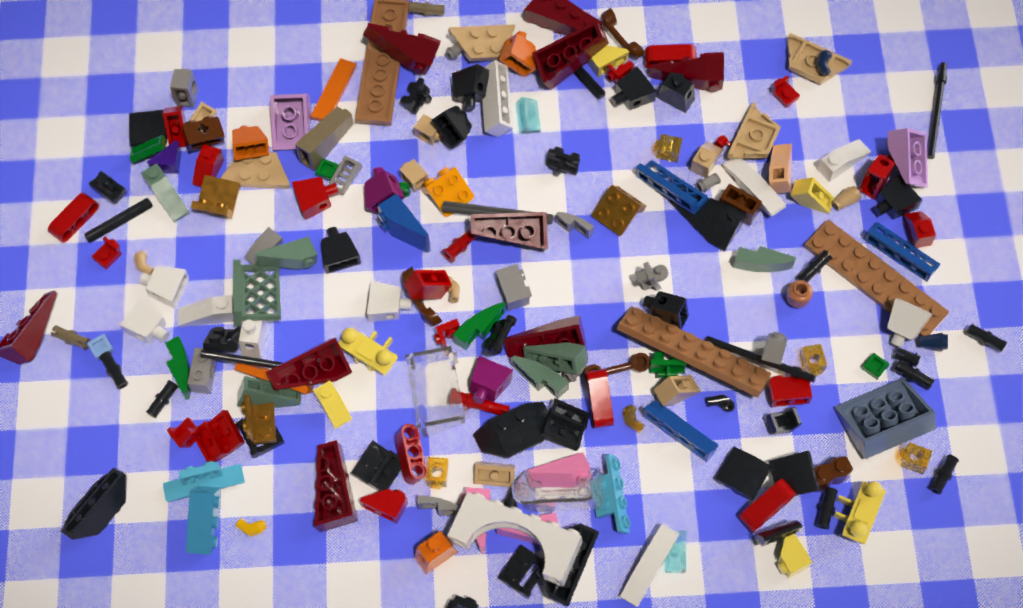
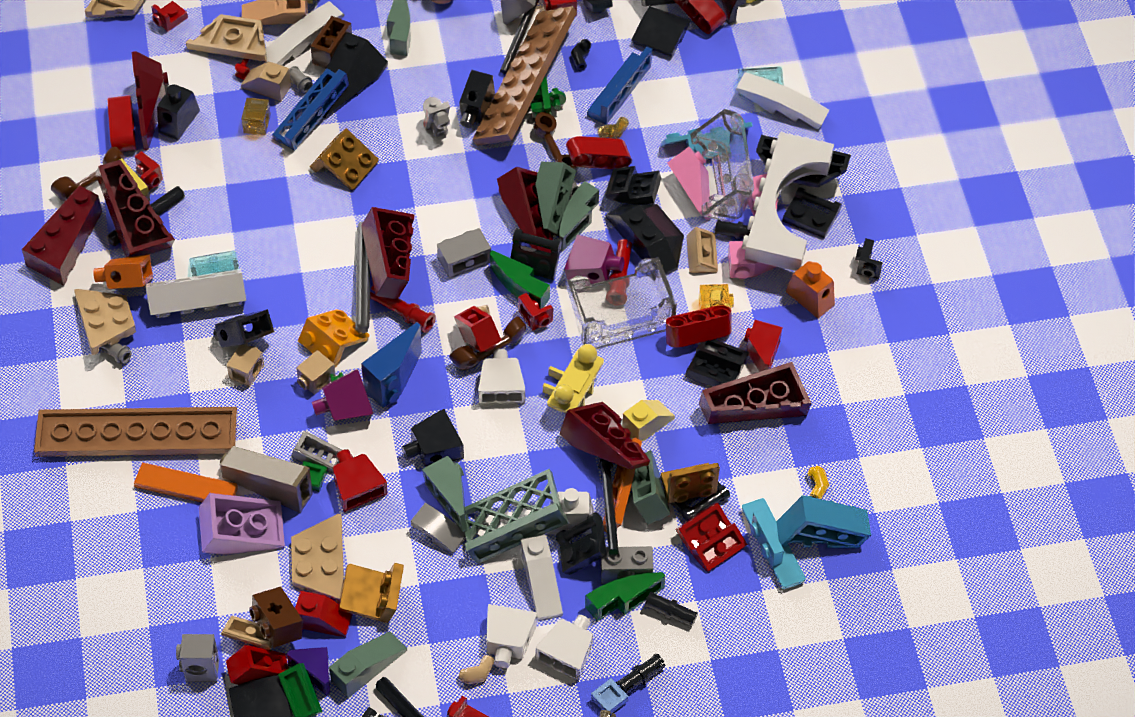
camera: 100 degrees left, 10 degrees down
(96, 506) = (830, 653): black wedge -> none
(185, 434) = (714, 570): red panel -> none
(249, 142) = (282, 563): orange torso -> none
(410, 50) = (128, 391): dark red wedge -> none
(418, 96) = (202, 387): black hips -> none
(426, 8) = (49, 390): dark tan pin -> none
(444, 507) = (755, 295): light grey slope -> none
(470, 85) = (180, 320): black torso -> none
(563, 162) = (284, 217): black hips -> none
(570, 222) = (371, 195): light grey slope -> none
(634, 90) = (174, 155): black torso -> none
(676, 389) = (577, 90): tan slope -> none

